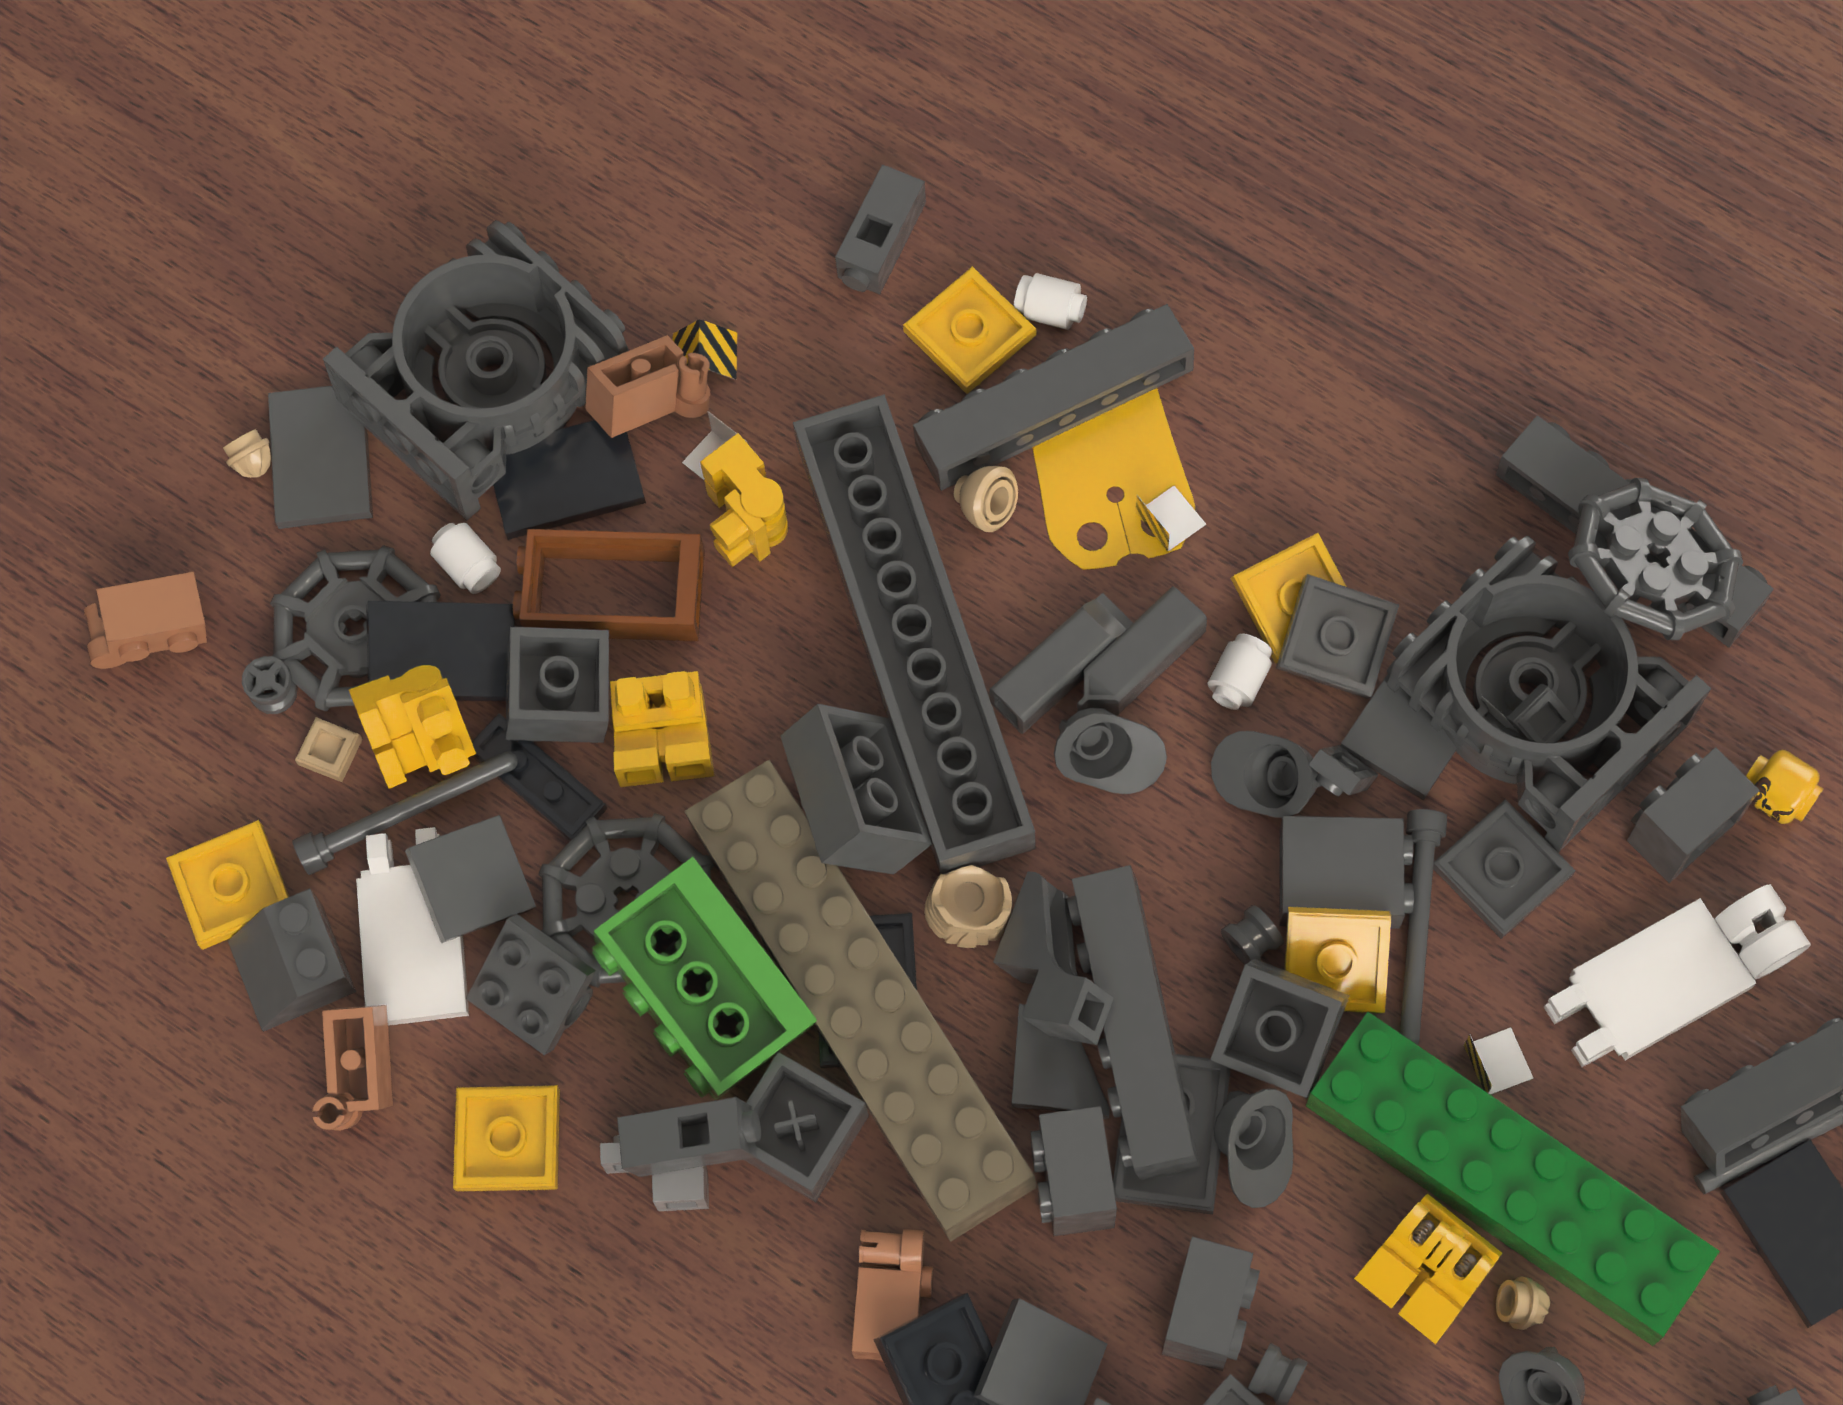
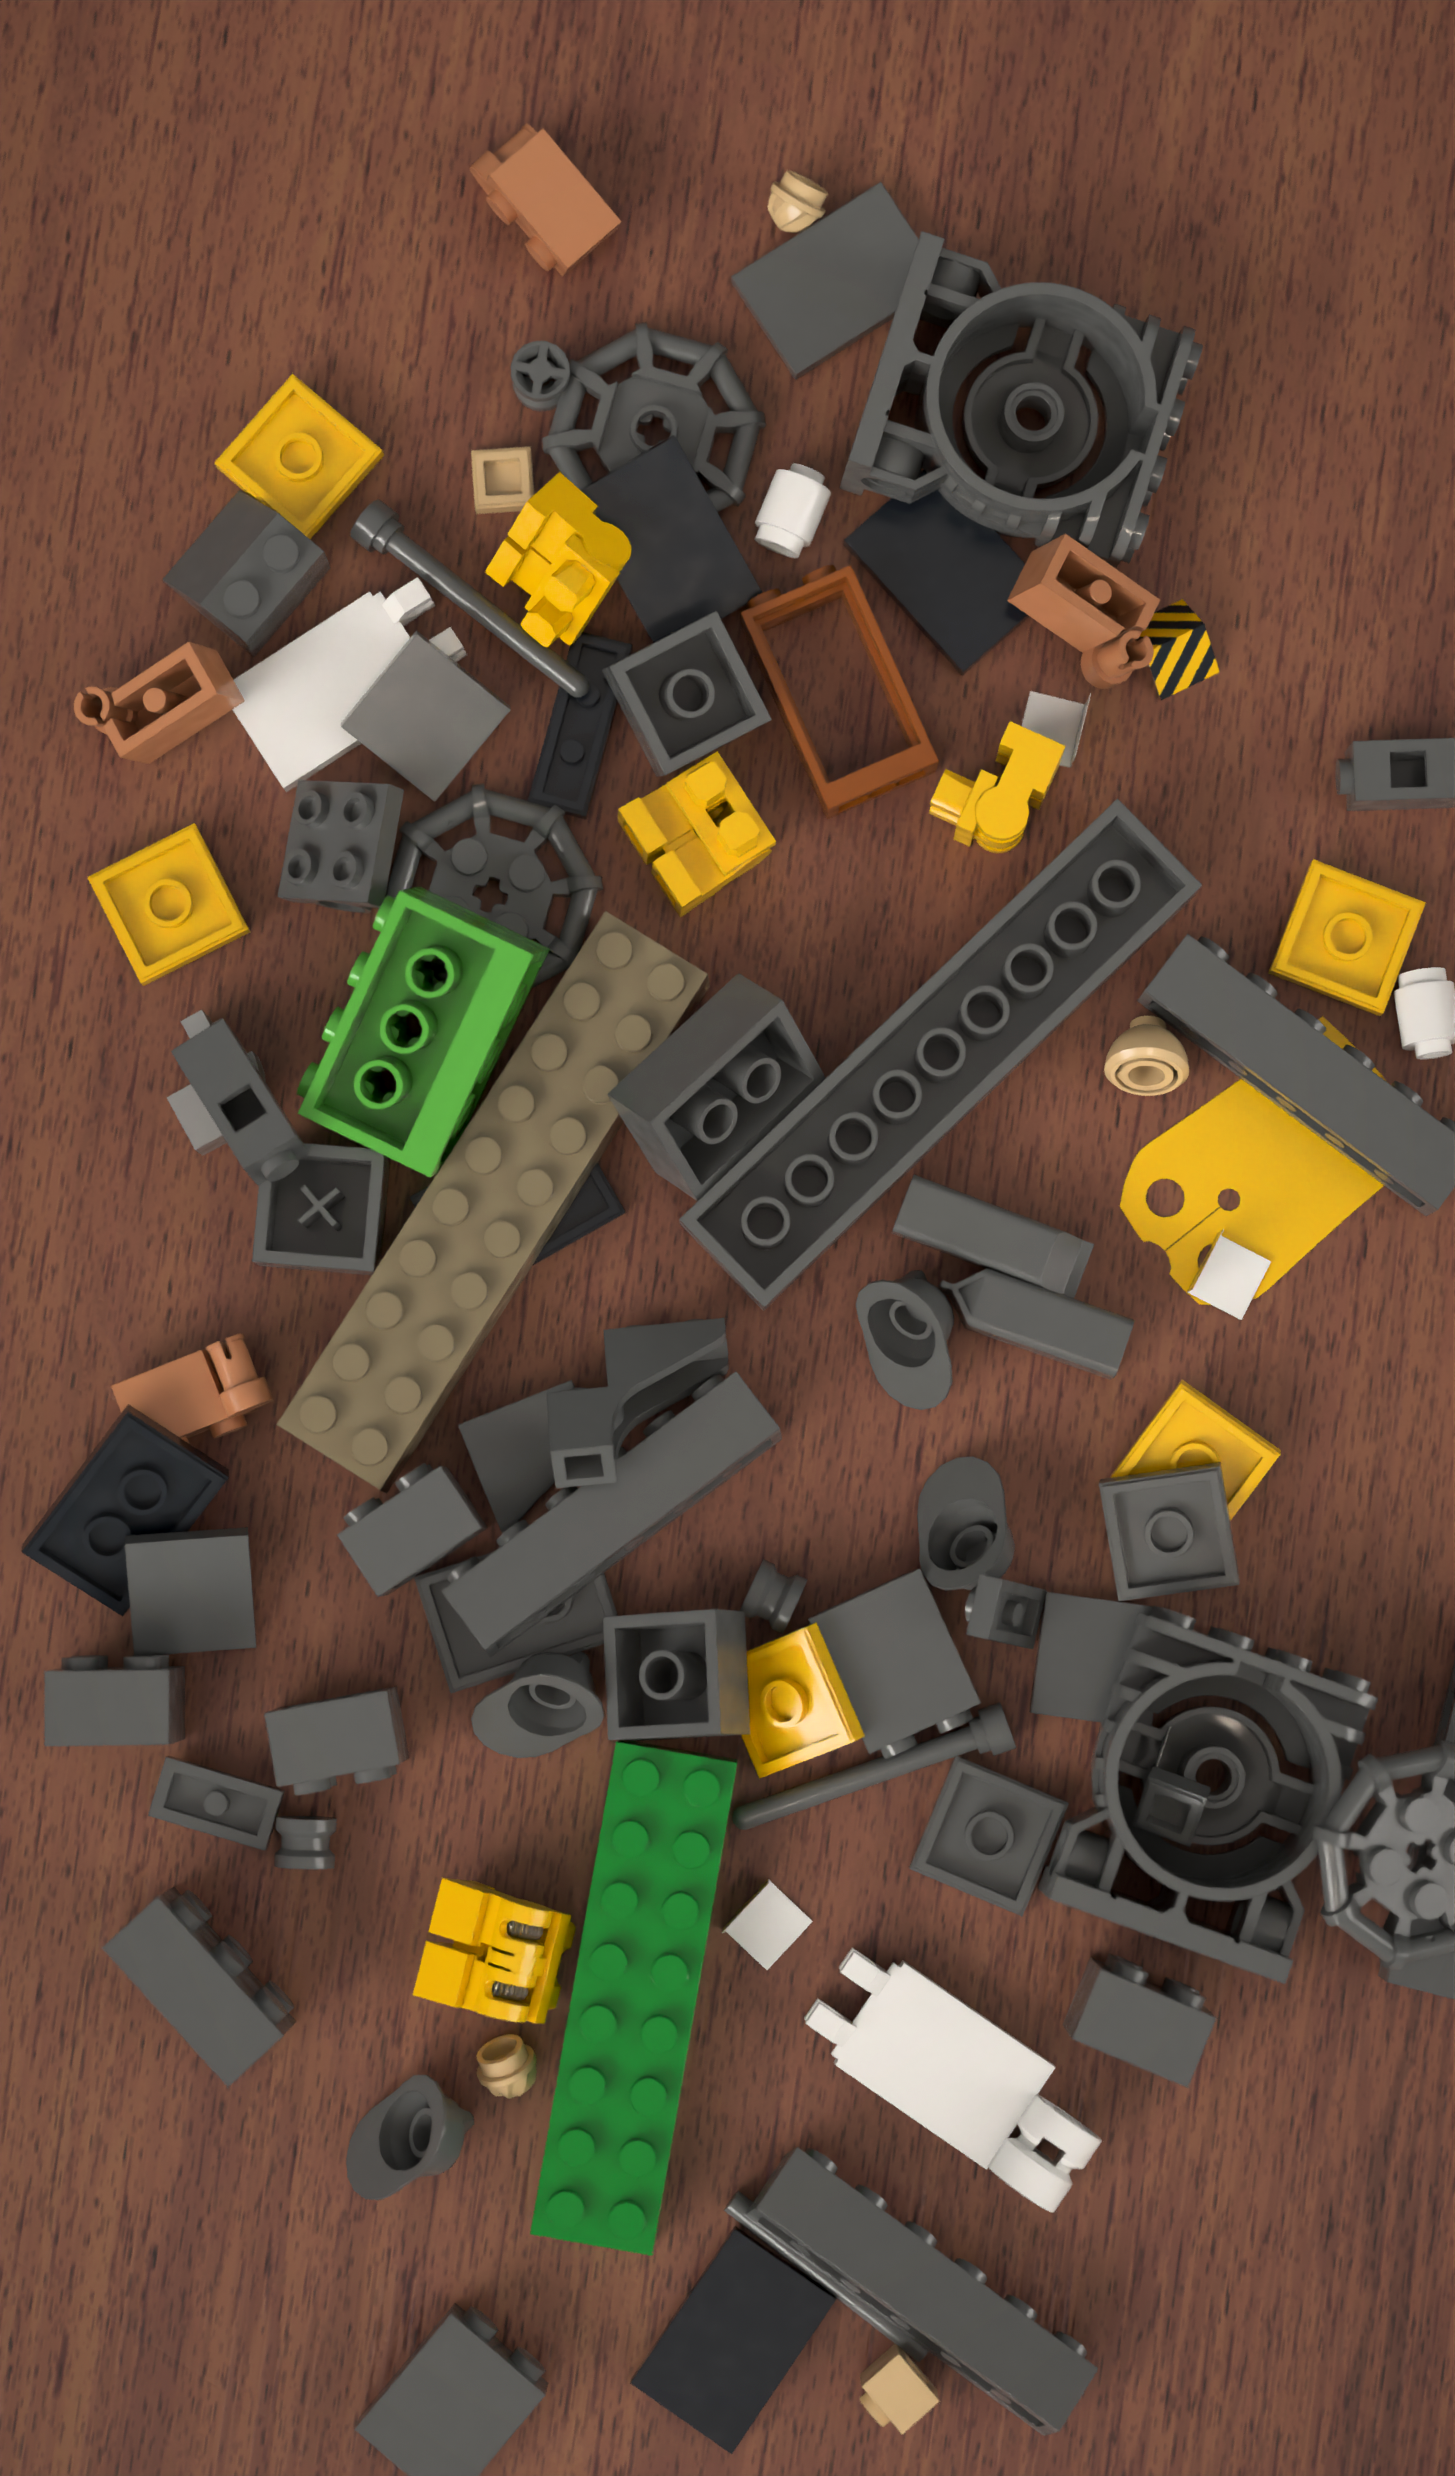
camera: 60 degrees right, 15 degrees up
(969, 907) = (657, 1271): tan hair -> none
(1240, 671) = (1075, 1442): white brick -> none
(1785, 786) = (1230, 2106): yellow head -> none

